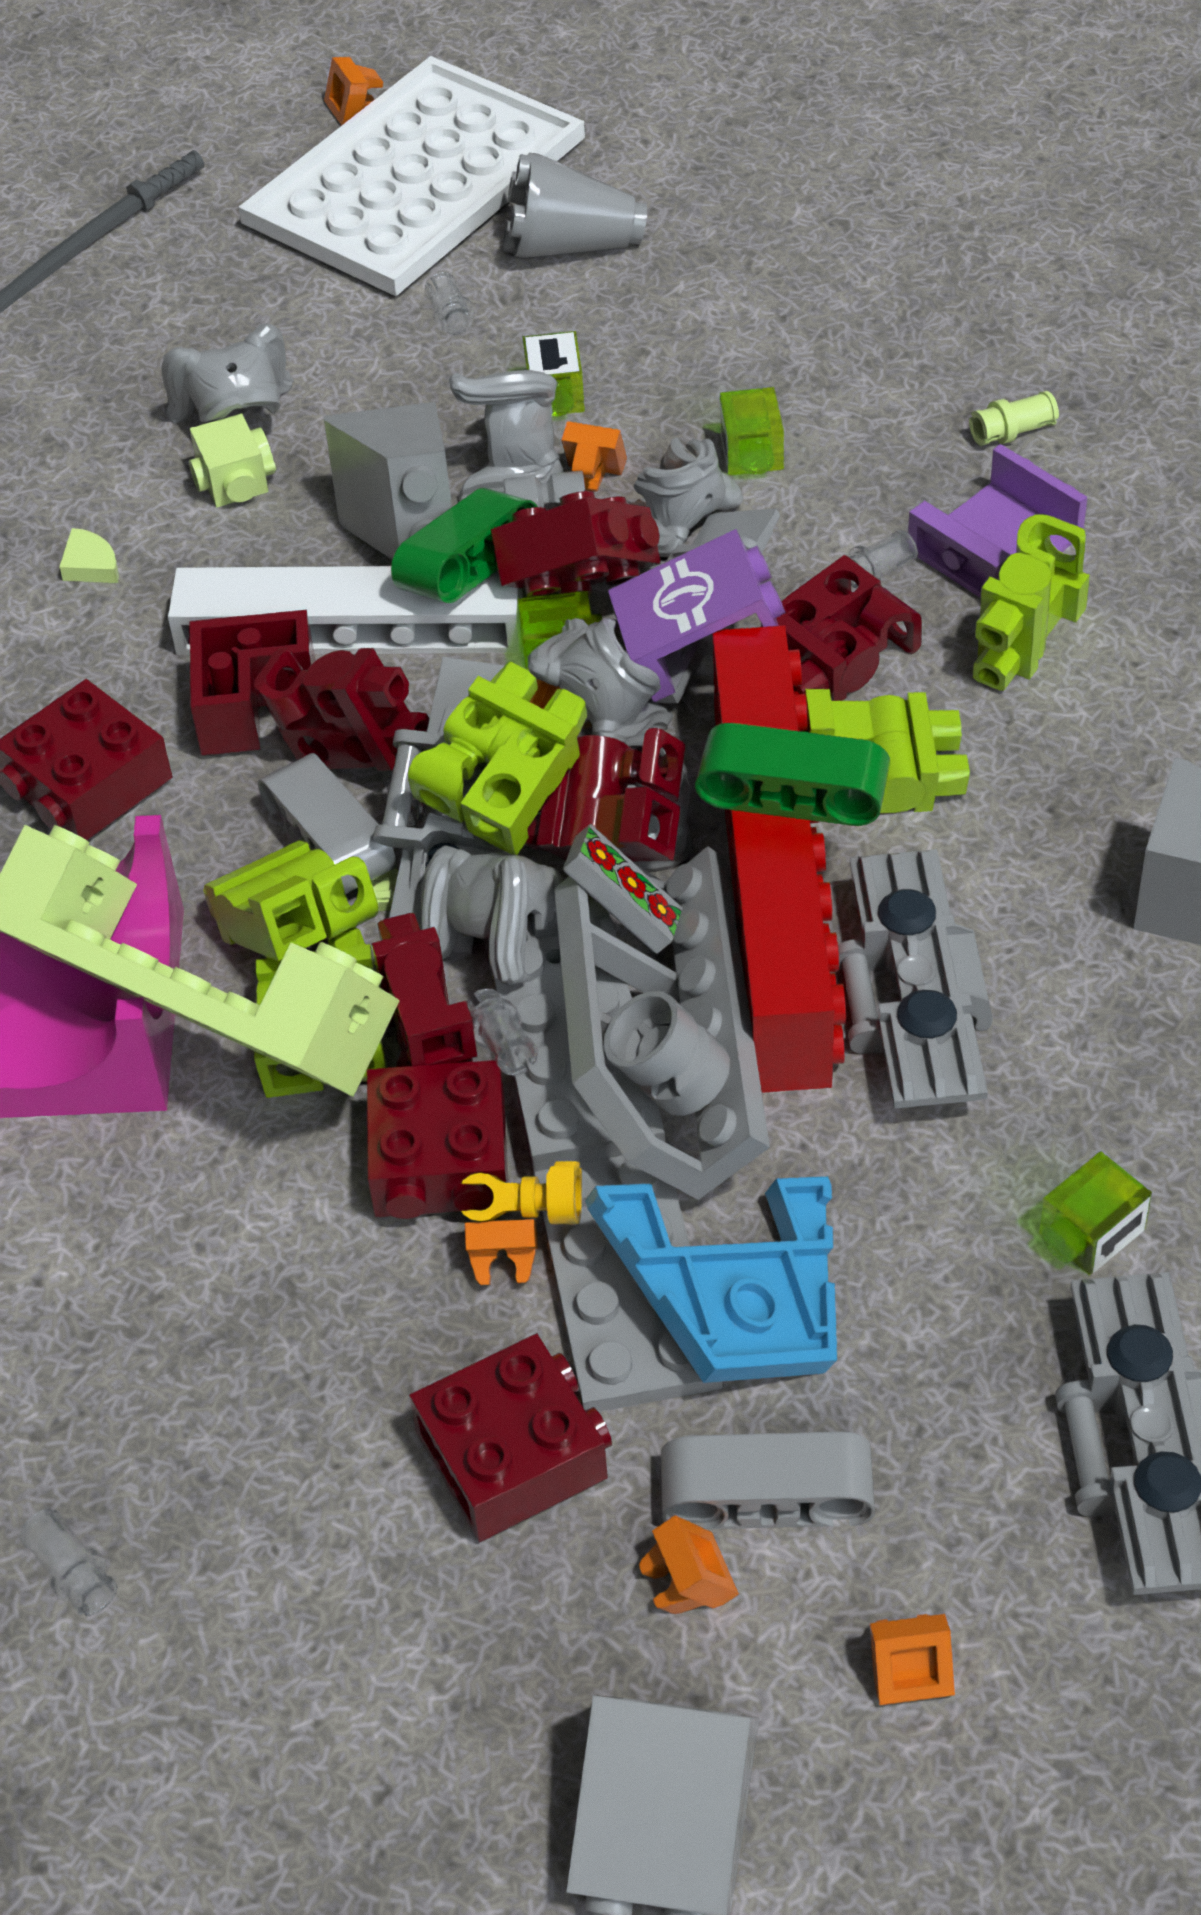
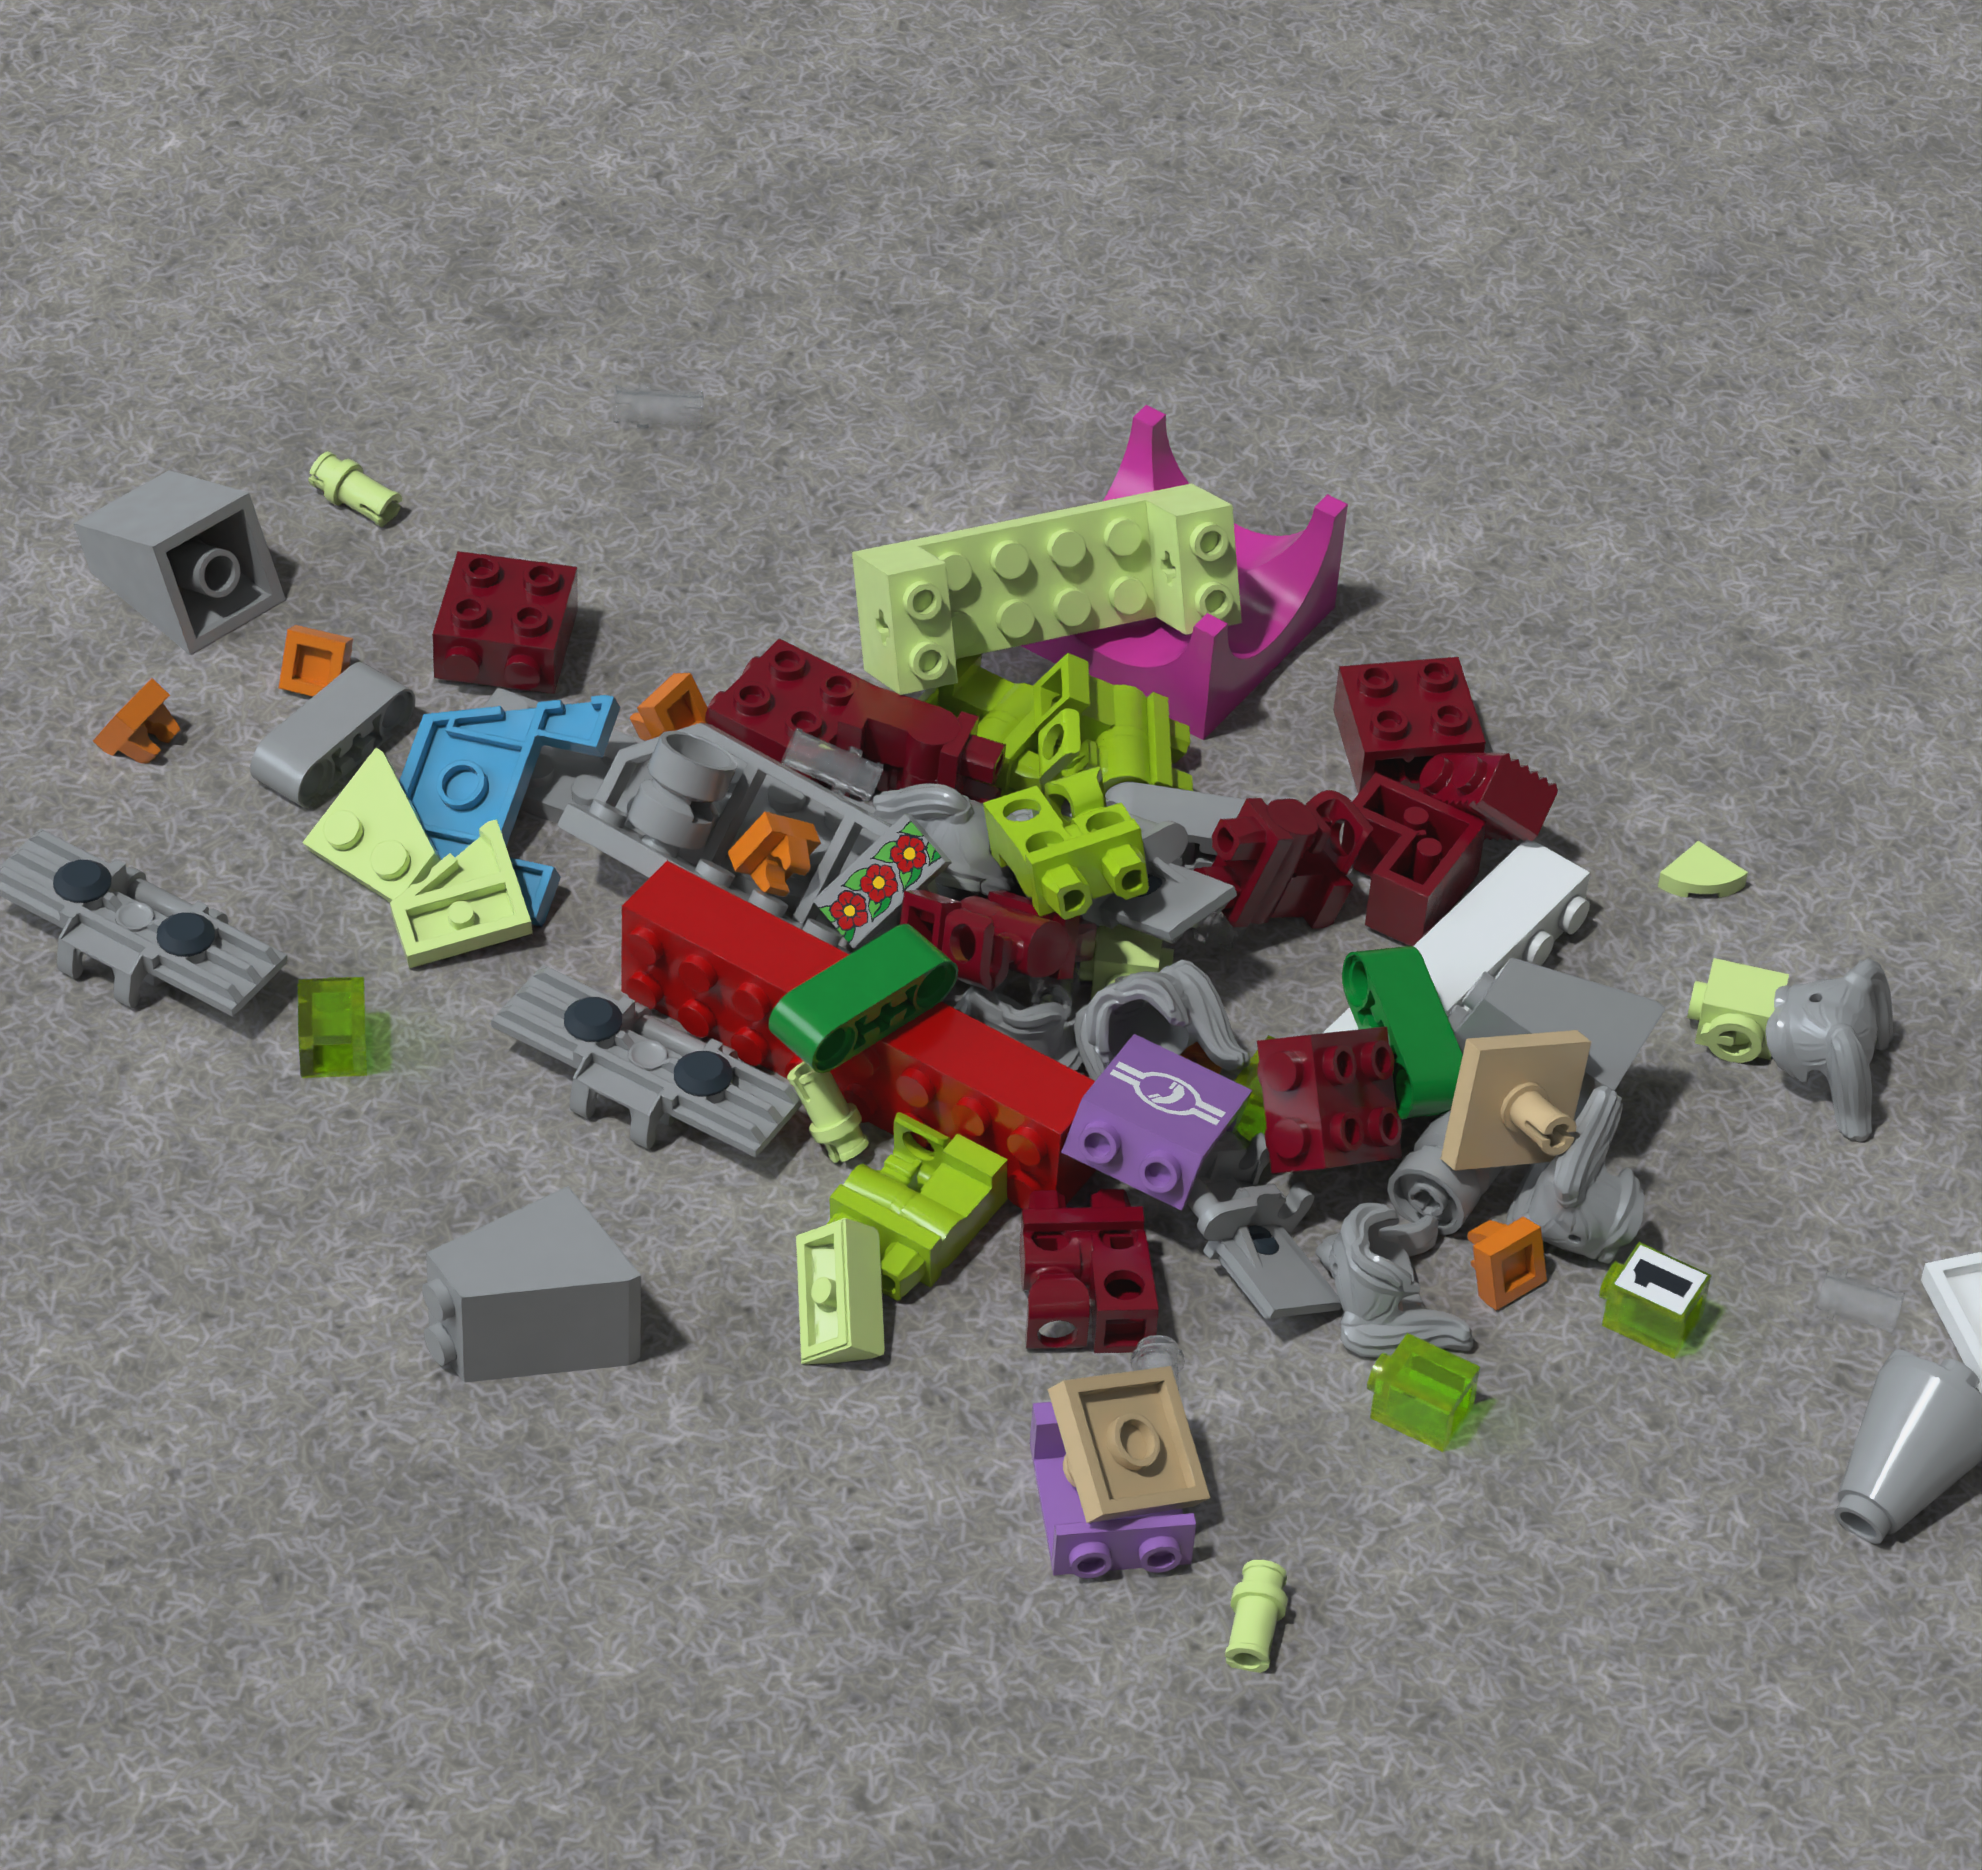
camera: 120 degrees right, 5 degrees down
(149, 648) = (1492, 790): none -> dark red brick
(414, 1750) = (347, 484): none -> yellowish green pin
(503, 424) = (1515, 1099): none -> tan tile
(558, 1196) = (659, 711): yellow piece -> none
(649, 971) = (774, 851): none -> orange tile
(841, 854) = (831, 1116): none -> yellowish green pin
(857, 1349) = (375, 832): none -> yellowish green wing
(872, 1224) = (462, 903): none -> yellowish green wing
(990, 491) = (1128, 1444): none -> tan tile
(1006, 738) = (840, 1293): none -> yellowish green slope
(1029, 600) = (965, 1404): lime hips -> none

